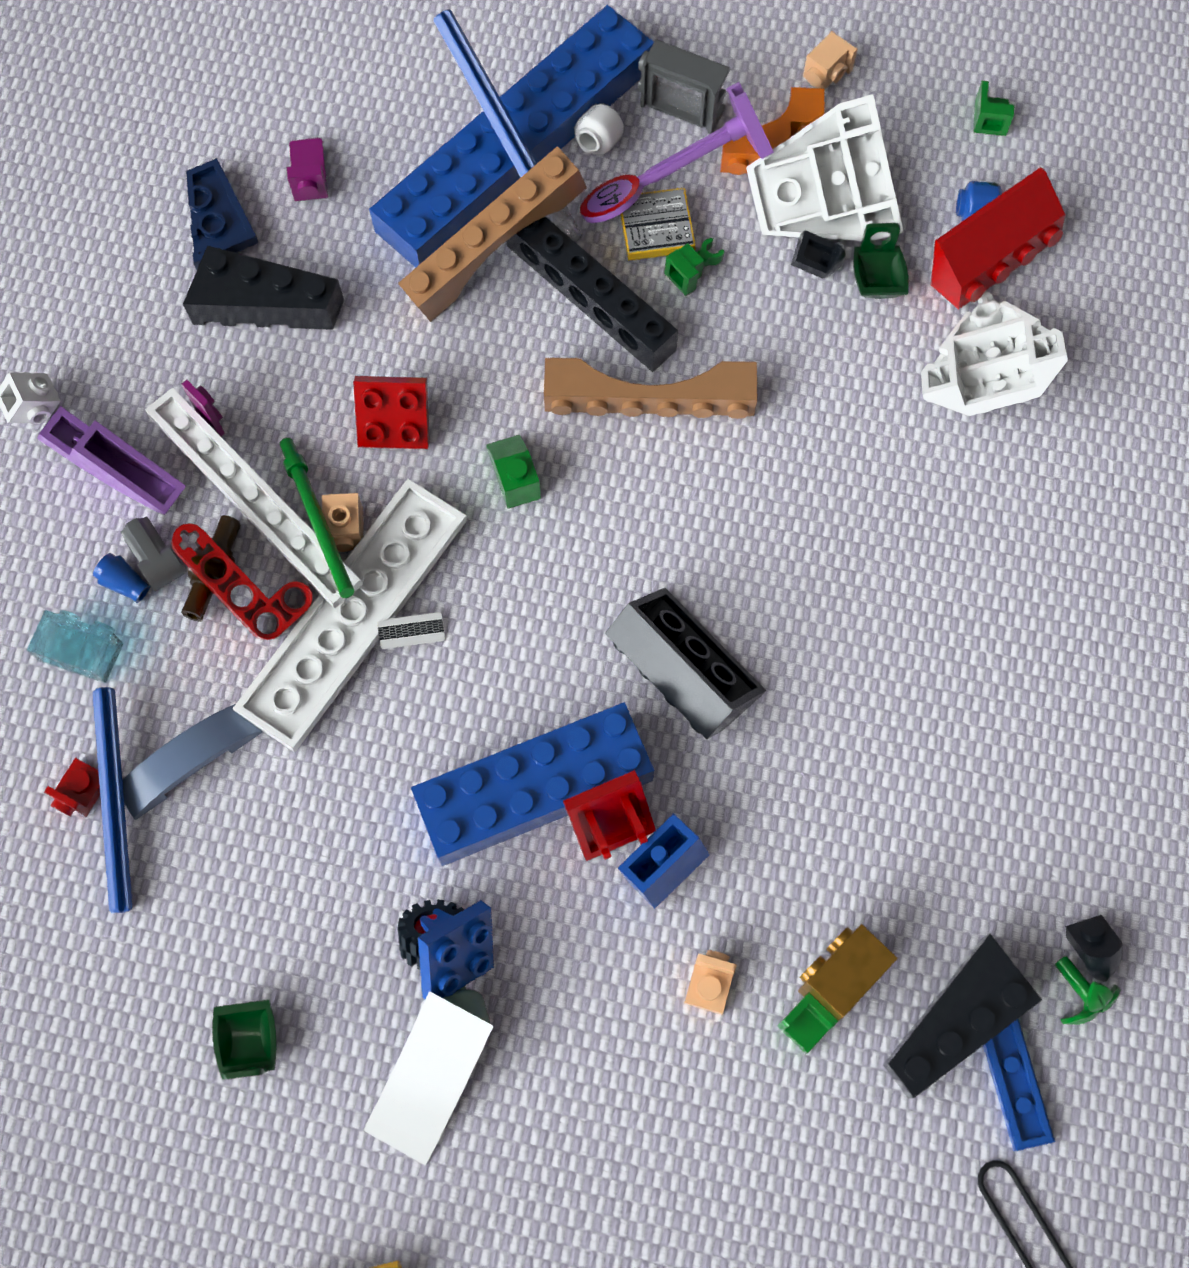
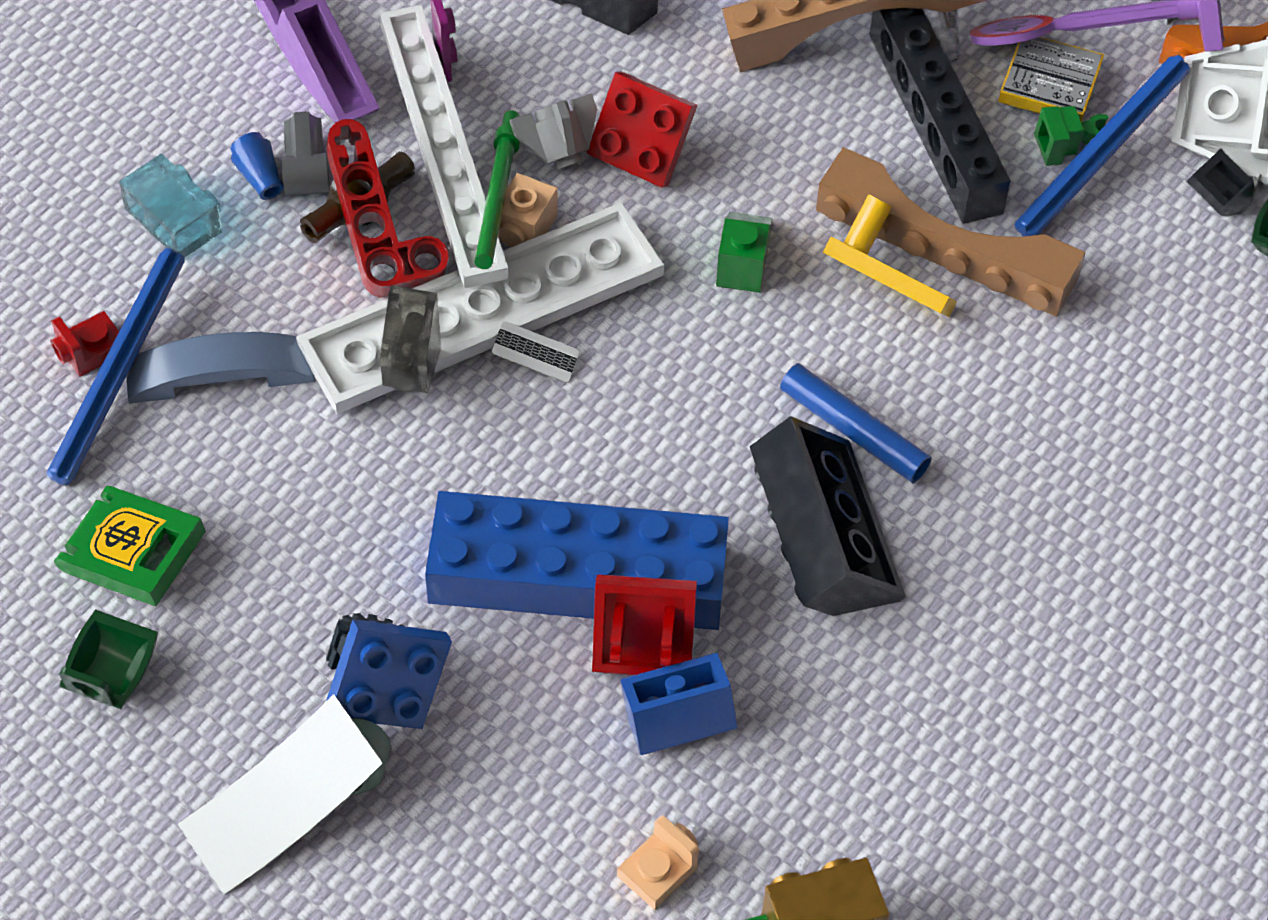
camera: 25 degrees right, 15 degrees down
(196, 937) = (120, 538): none -> green container
(325, 680) = (410, 339): none -> clear smoke slope
(332, 443) = (559, 132): none -> light grey brick
(595, 439) = (855, 254): none -> yellow piece
(663, 573) = (855, 423): none -> blue piece
(722, 266) = (1102, 147): none -> blue axle

